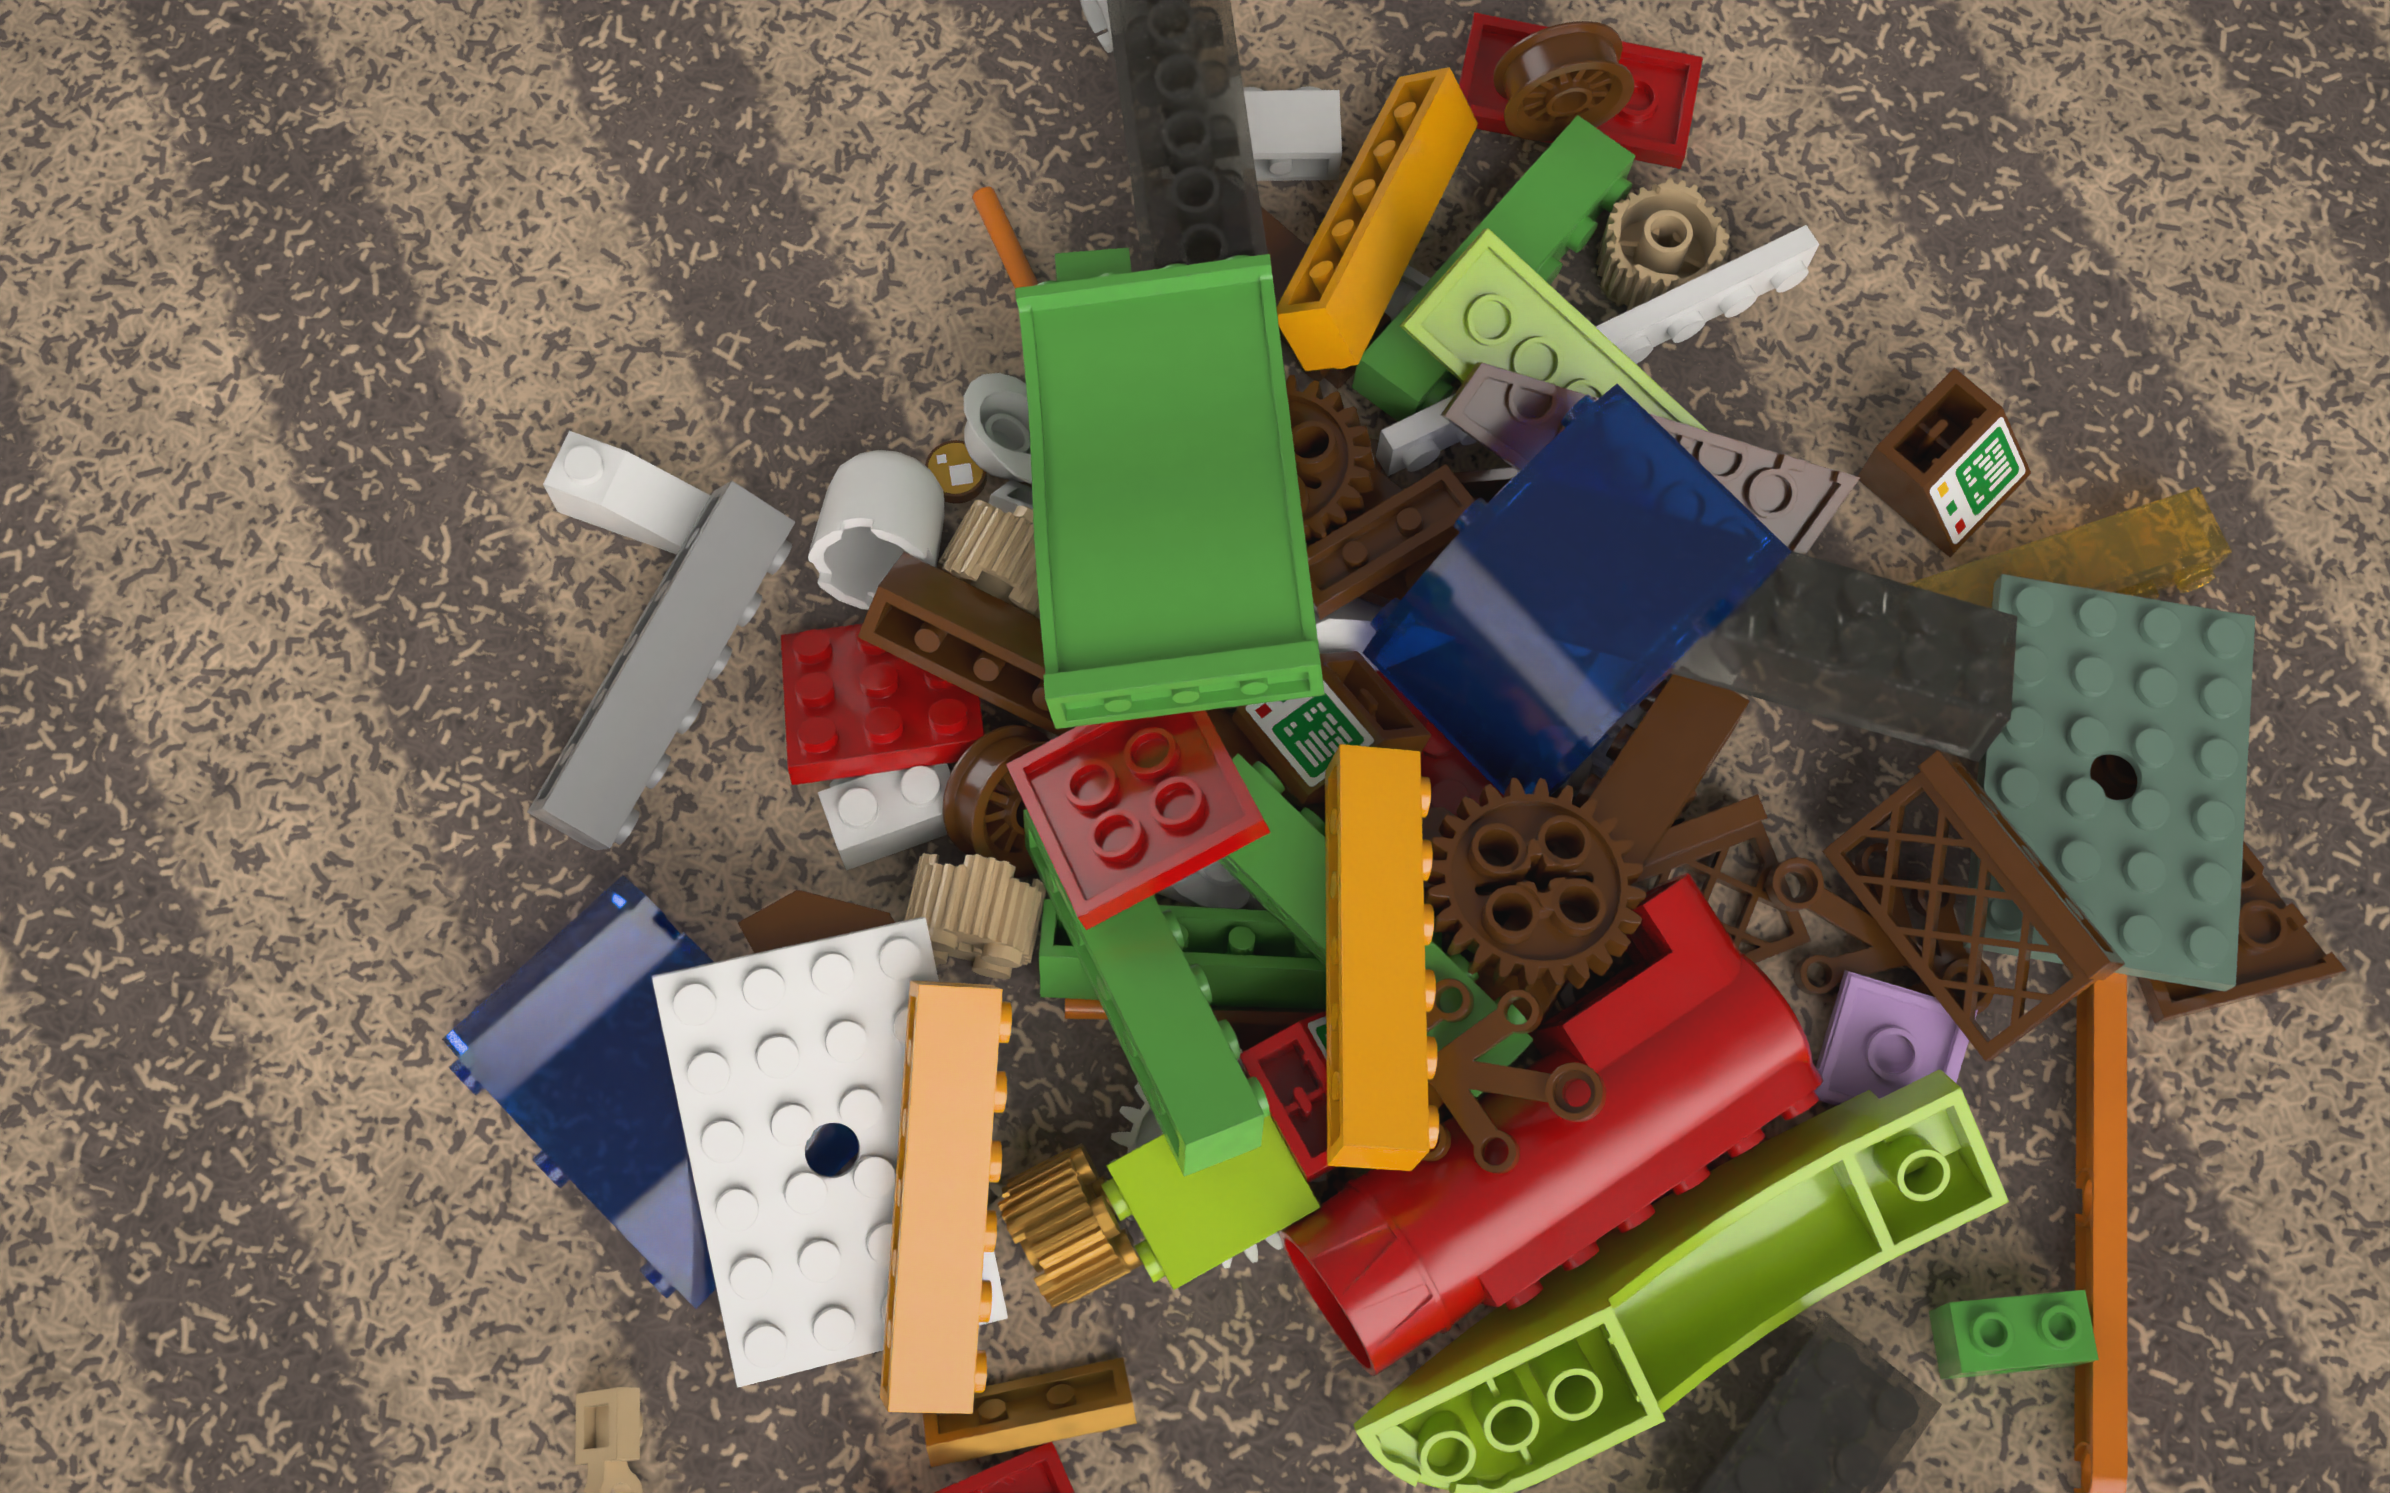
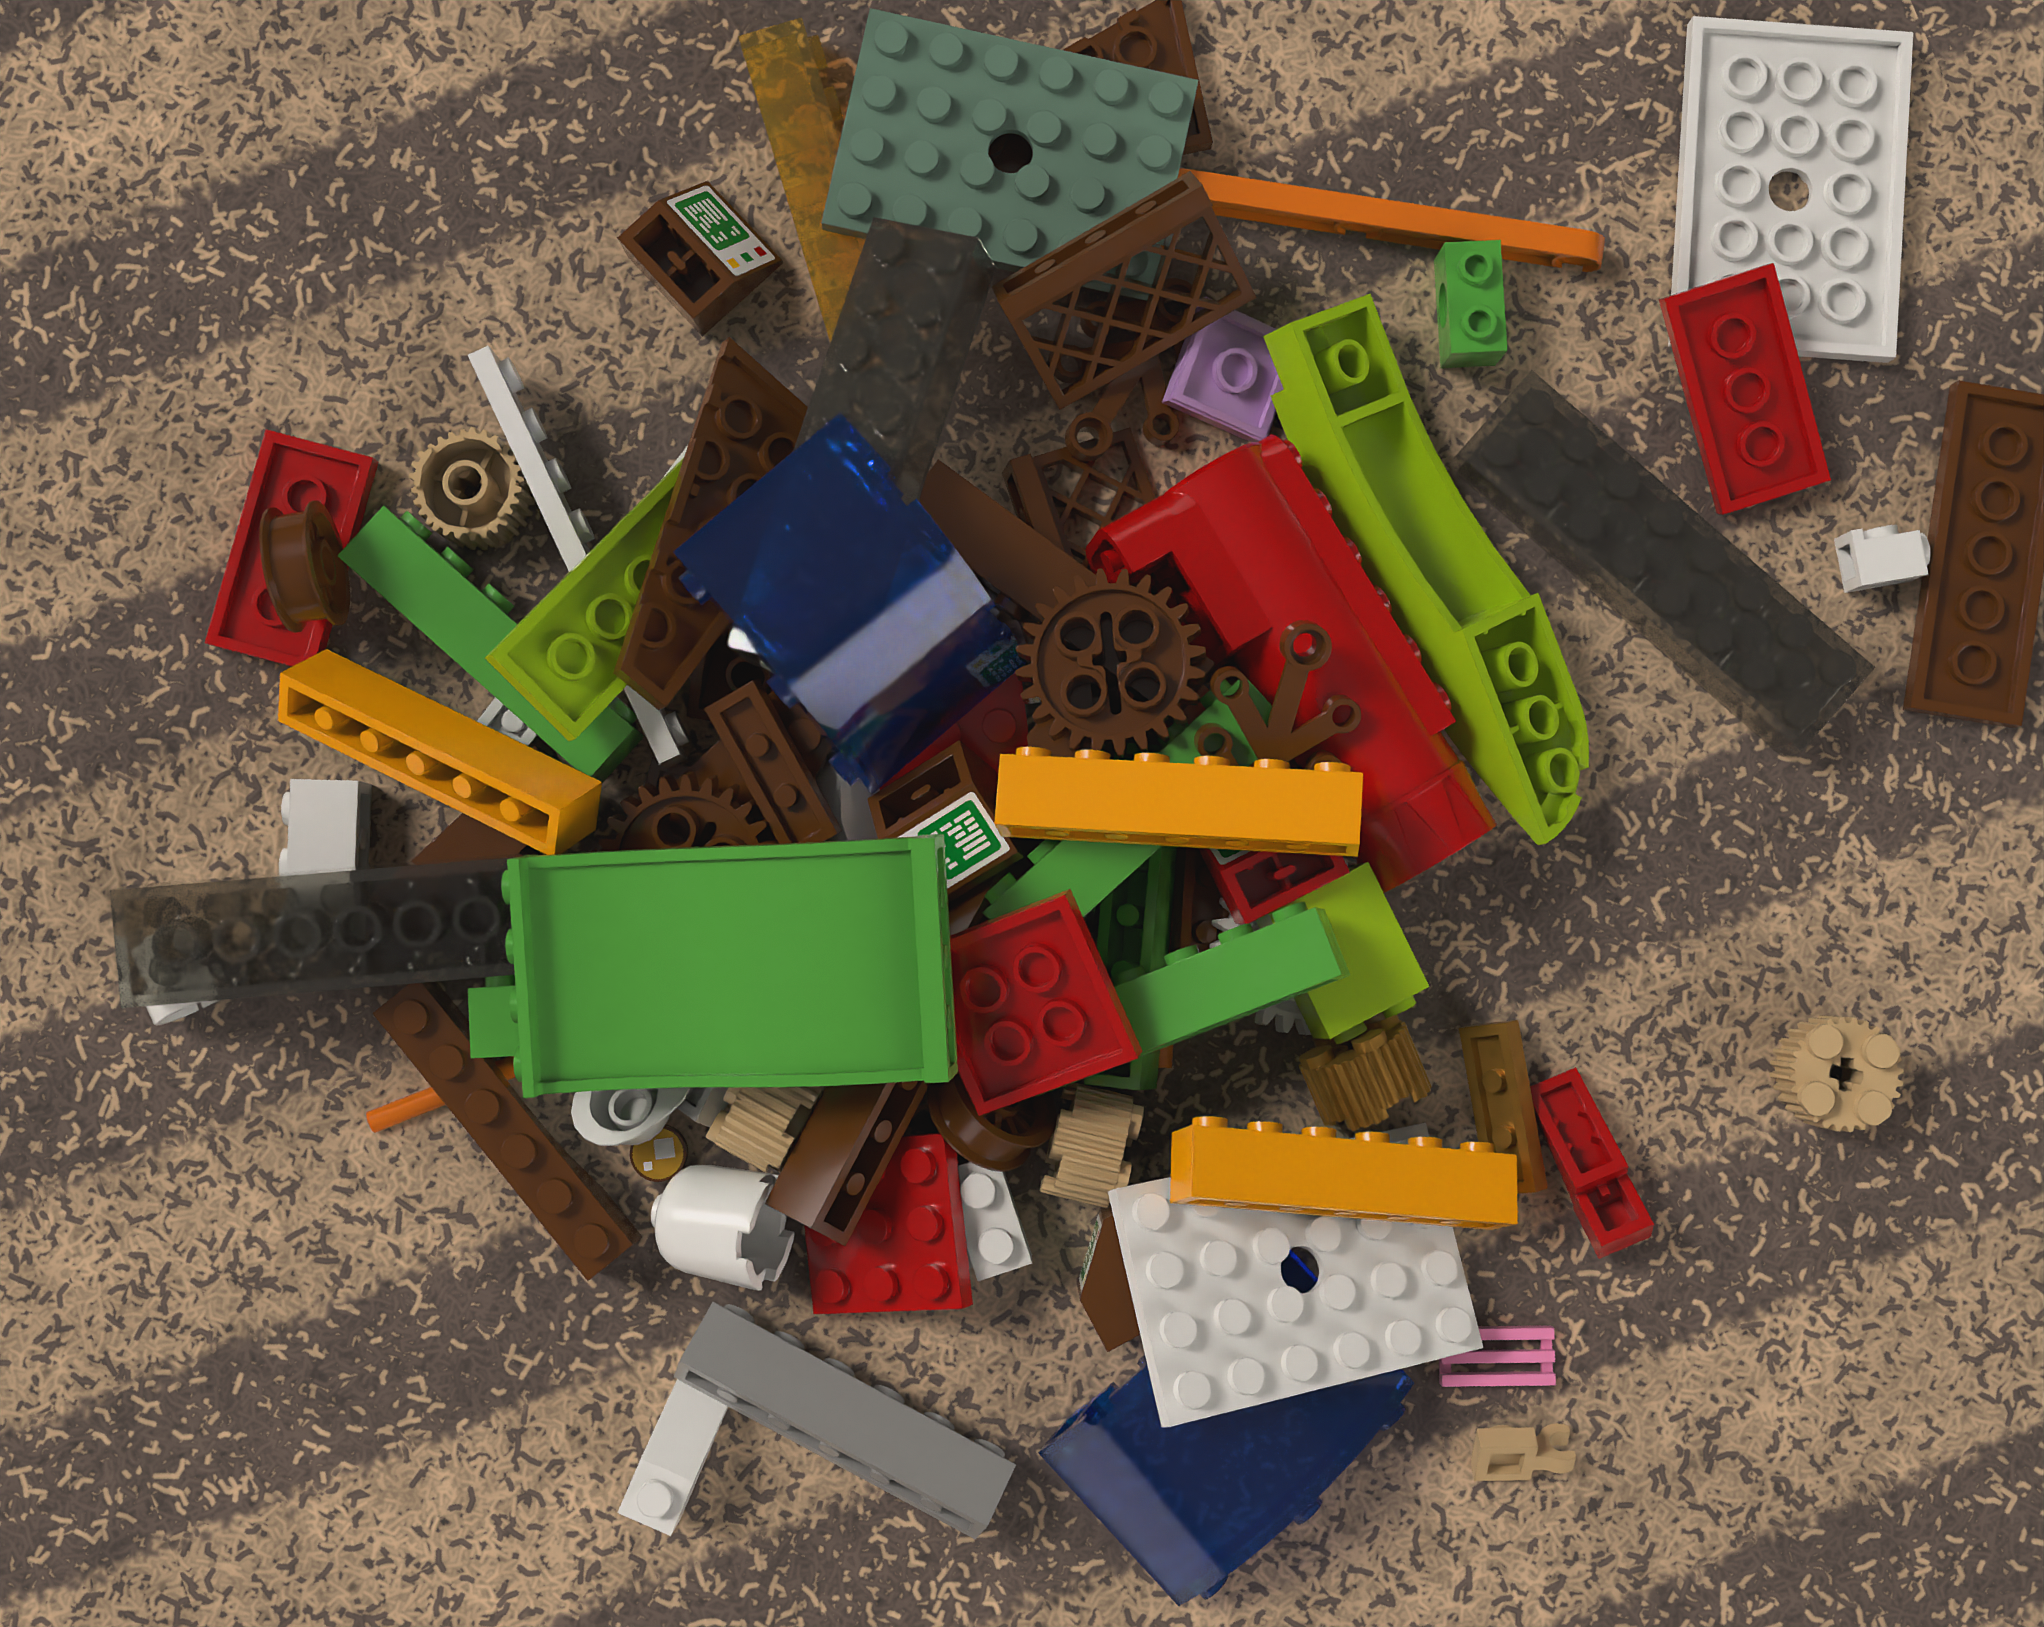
camera: 85 degrees left, 15 degrees up
(698, 1426) = (1544, 1356): none -> bright pink tile
(912, 365) = (530, 1159): none -> reddish brown arch

